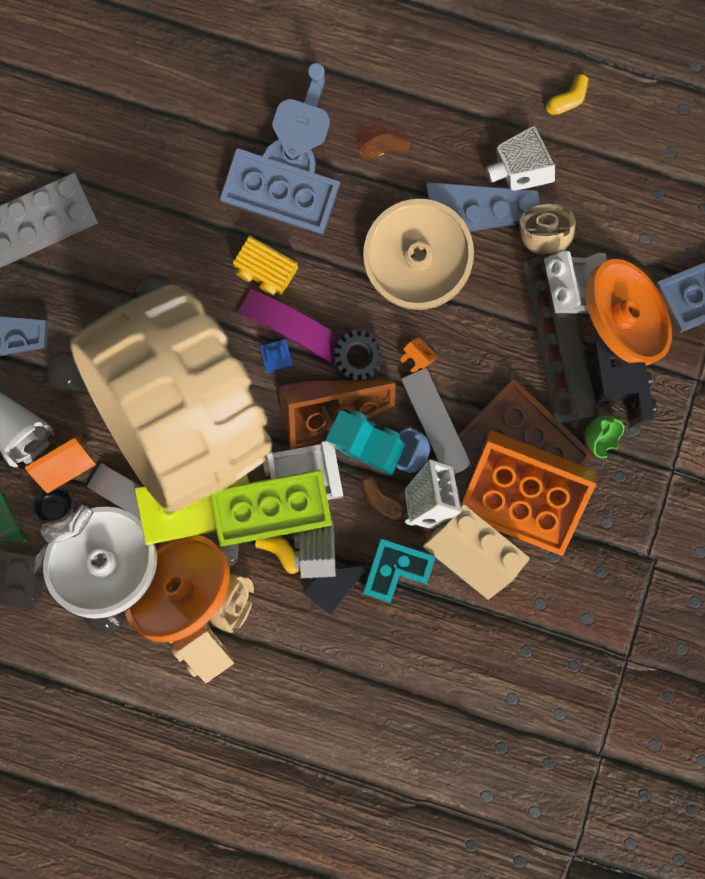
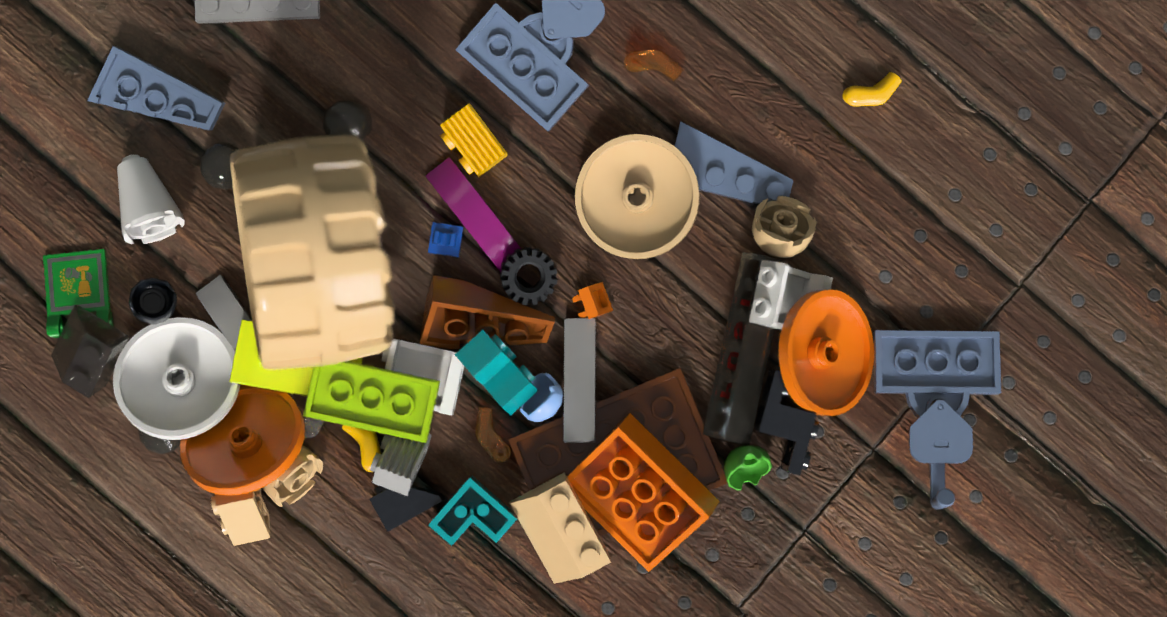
camera: 25 degrees right, 5 degrees up
(61, 464) = (178, 260): orange slope -> none
(69, 528) = (158, 331): clear arm -> none
(432, 496) = (539, 457): white torso -> none
(523, 162) = (789, 143): white torso -> none

